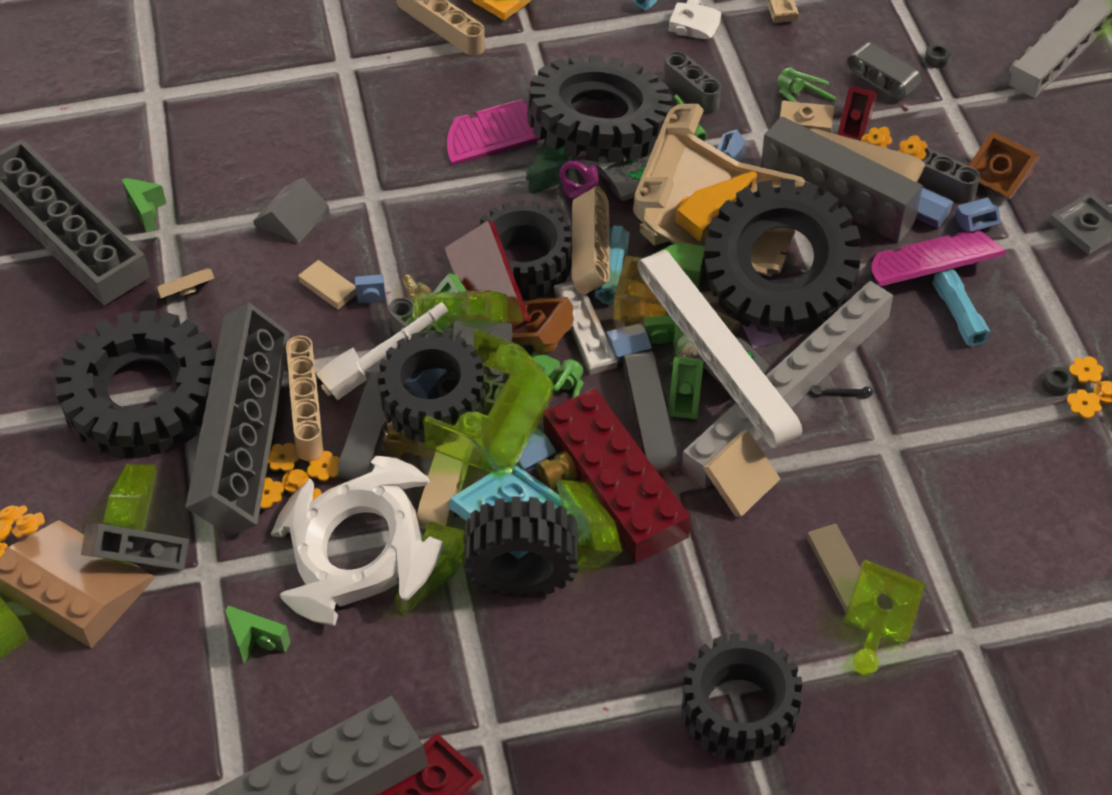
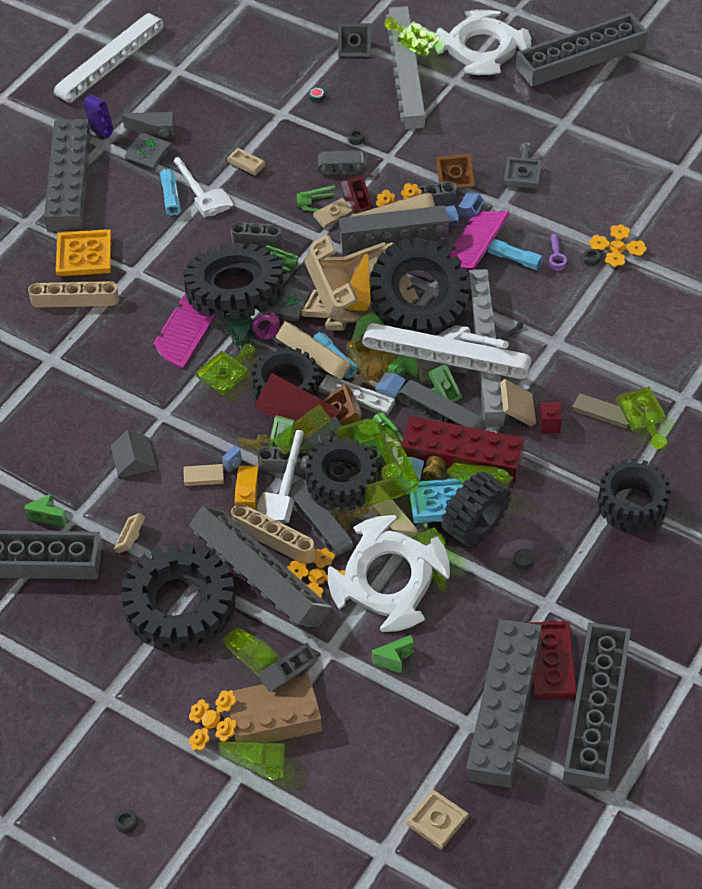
camera: 45 degrees left, 0 degrees up
(344, 330) = (247, 486): none -> light orange slope
(489, 185) = (224, 363): none -> clear neon green plate
(529, 657) = (524, 558): none -> pearl dark grey tile
(765, 519) = (550, 416): none -> dark red slope
(770, 344) = (463, 334): none -> white piece
(1015, 347) = (556, 256): none -> medium lavender piece

